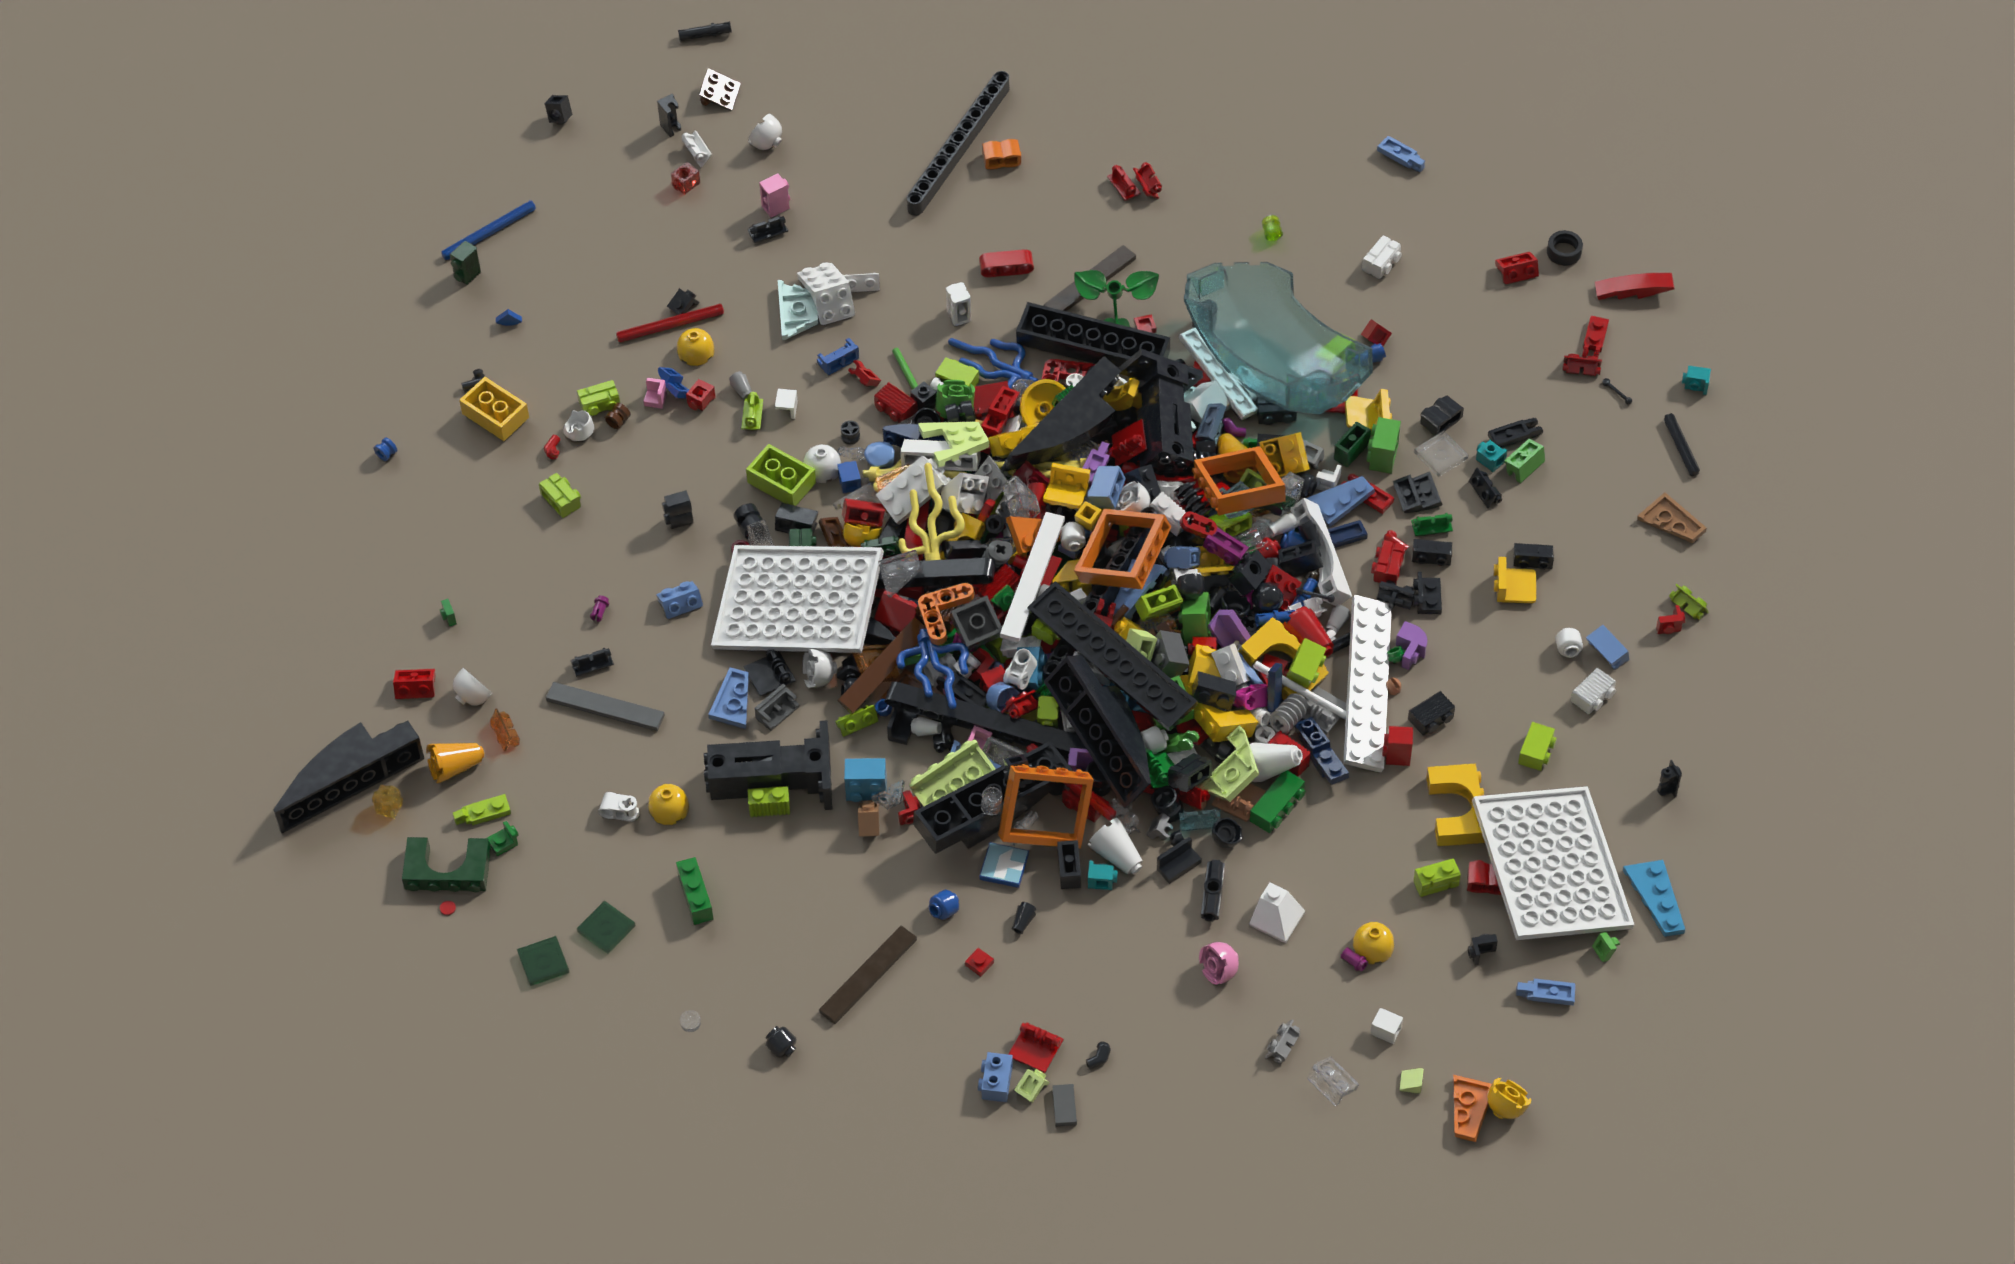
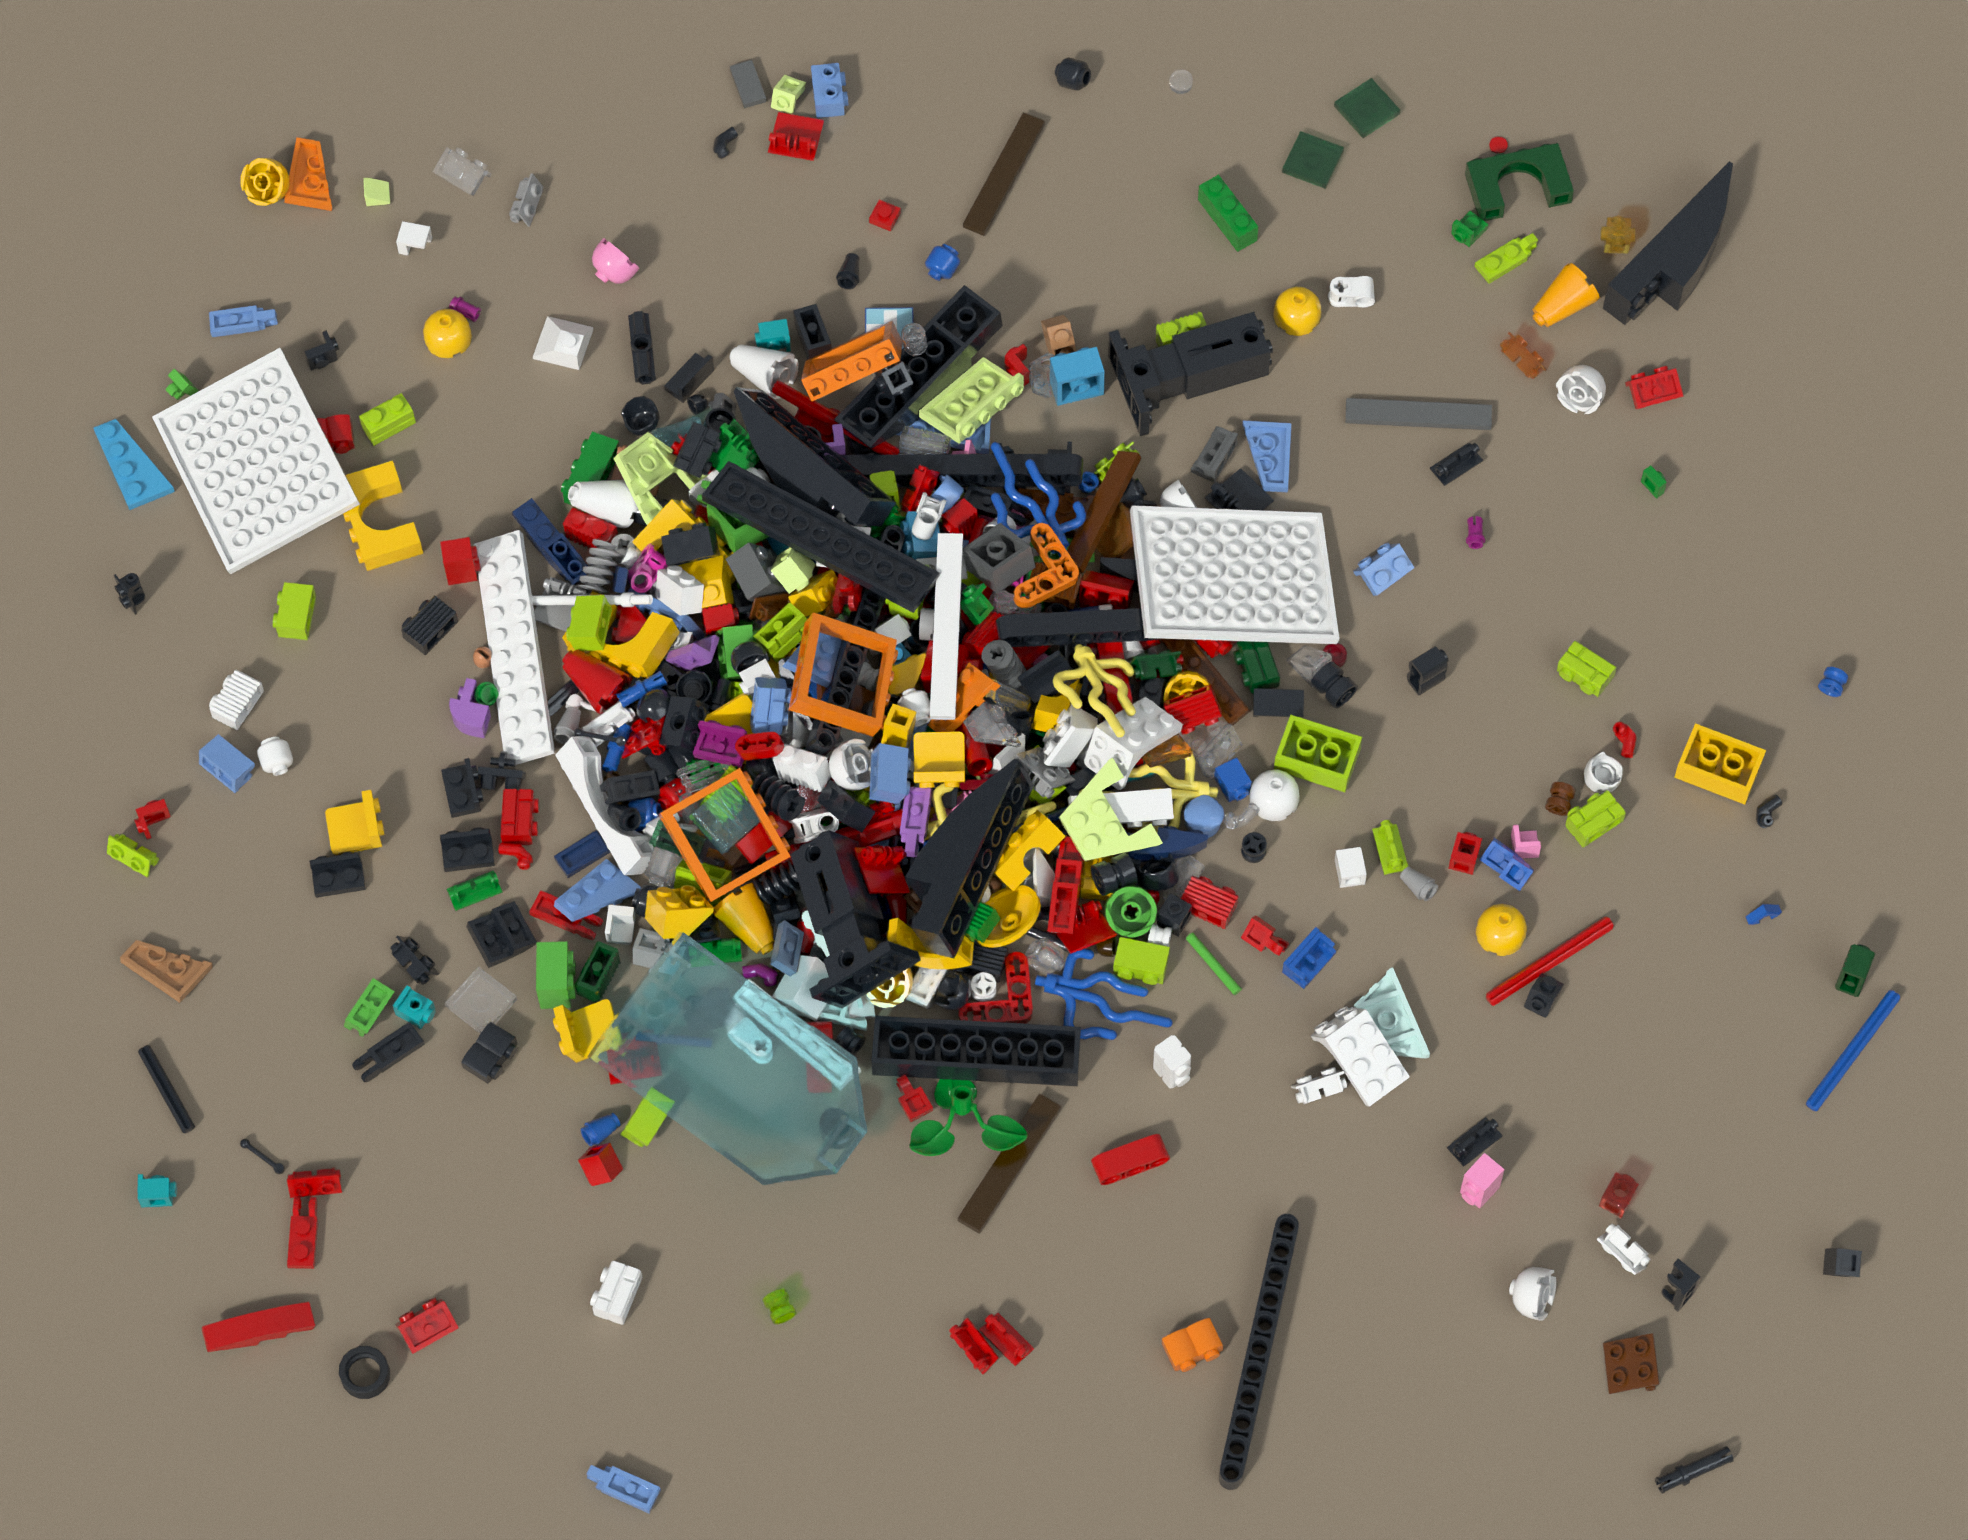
camera: 165 degrees right, 10 degrees up
(899, 570) = (1116, 609): clear wing -> none
(986, 510) = (1036, 734): red tile -> none

